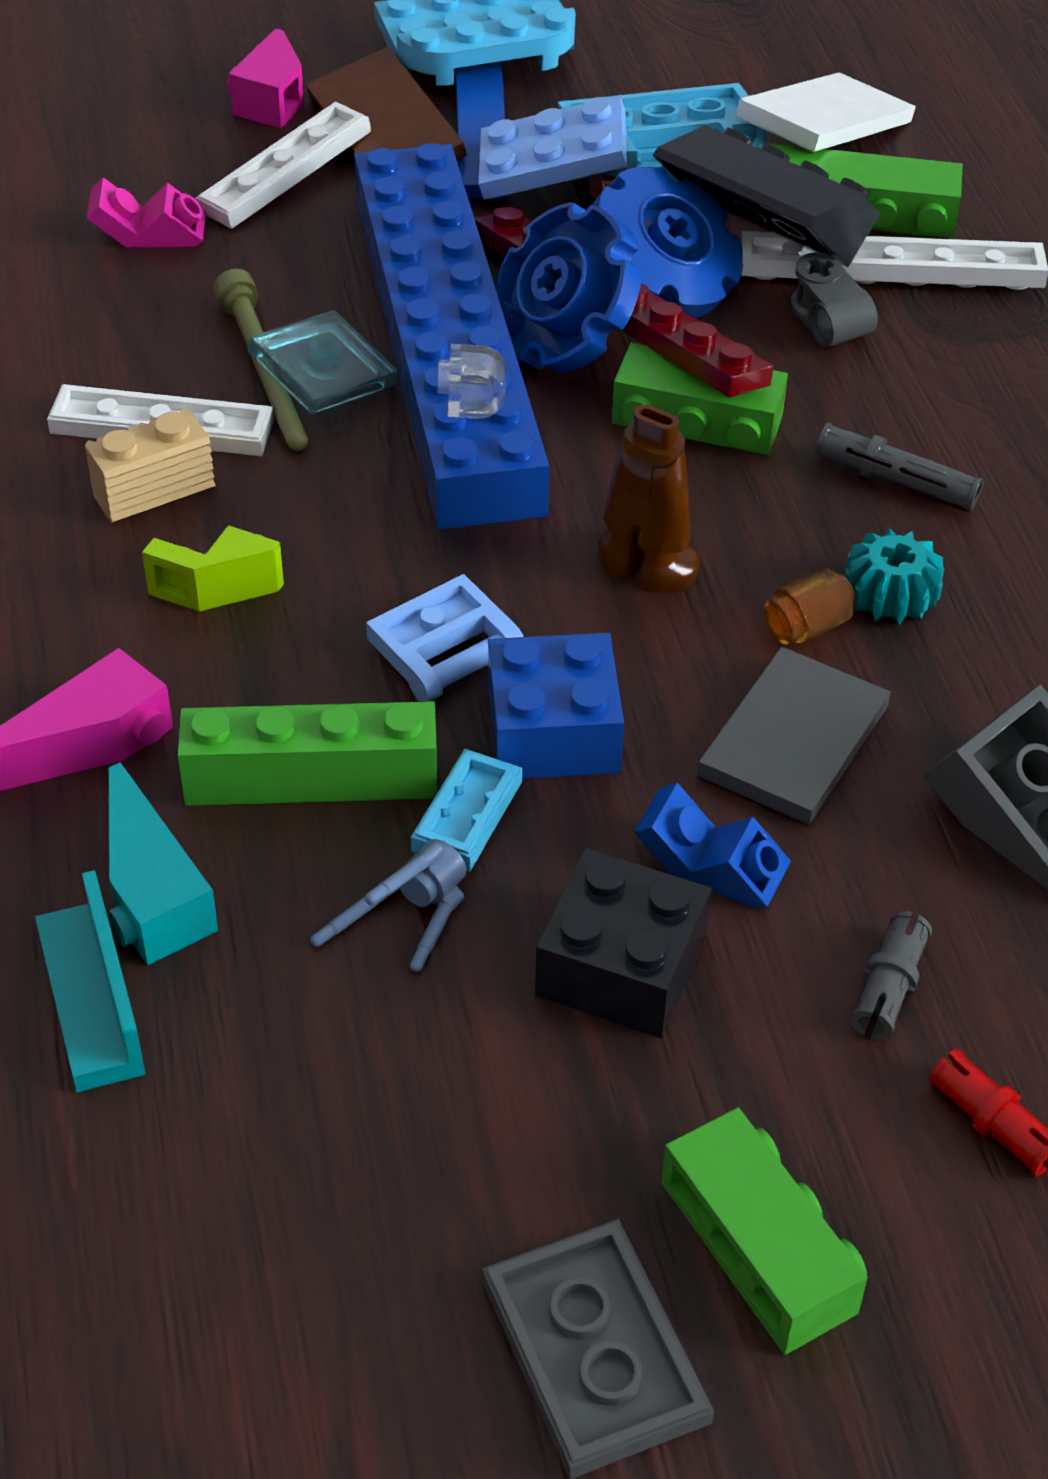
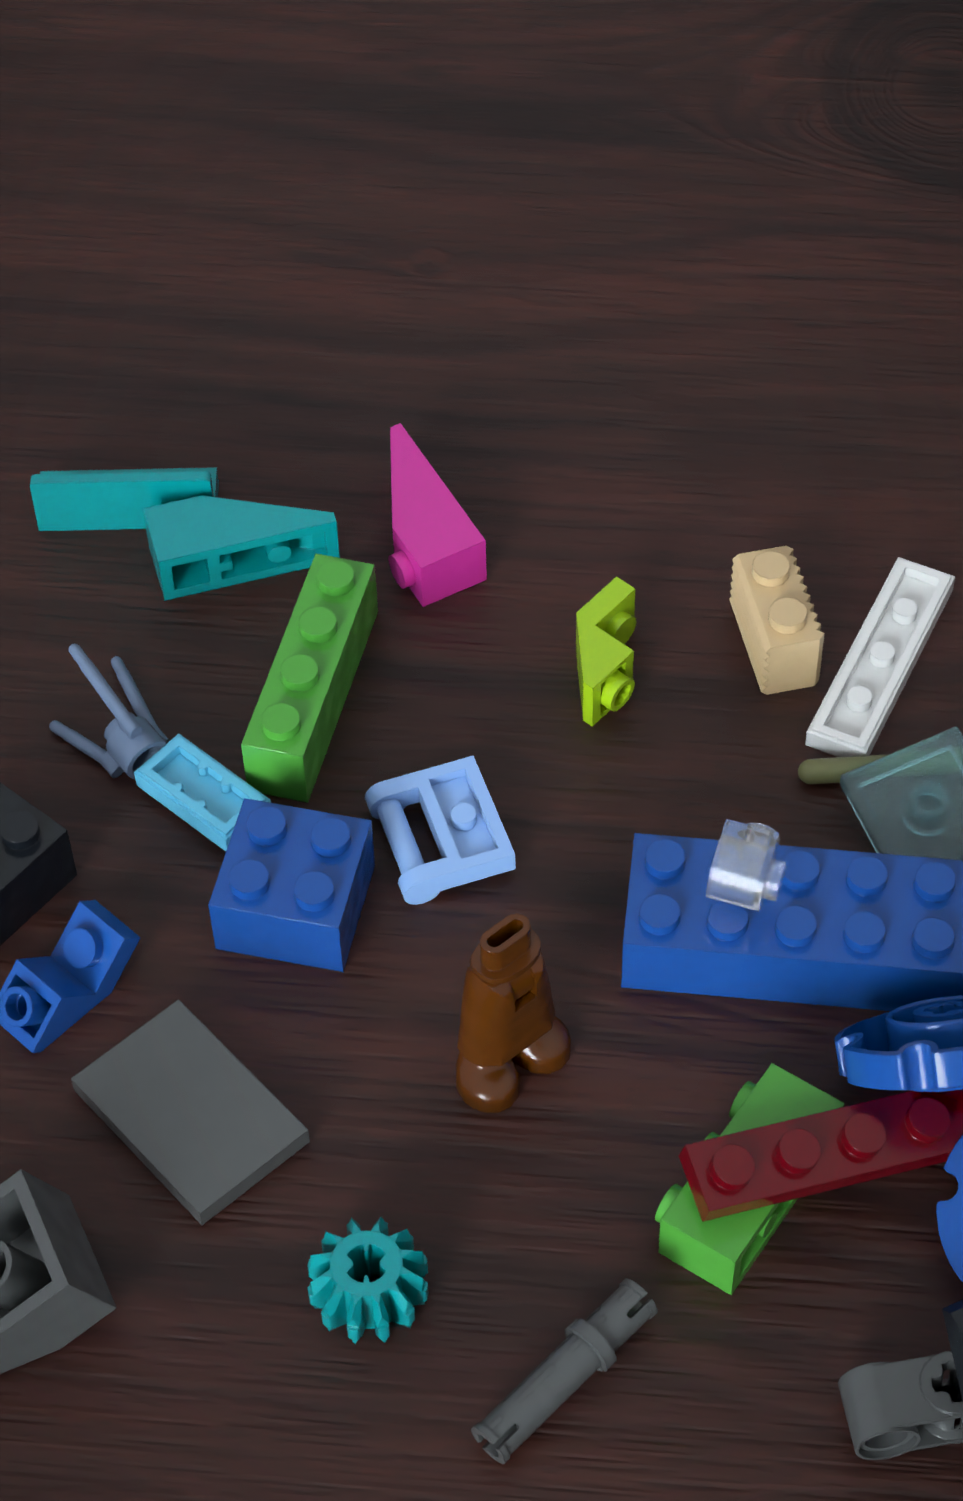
camera: 110 degrees right, 5 degrees up
(810, 606) = (352, 1174): clear orange brick -> none

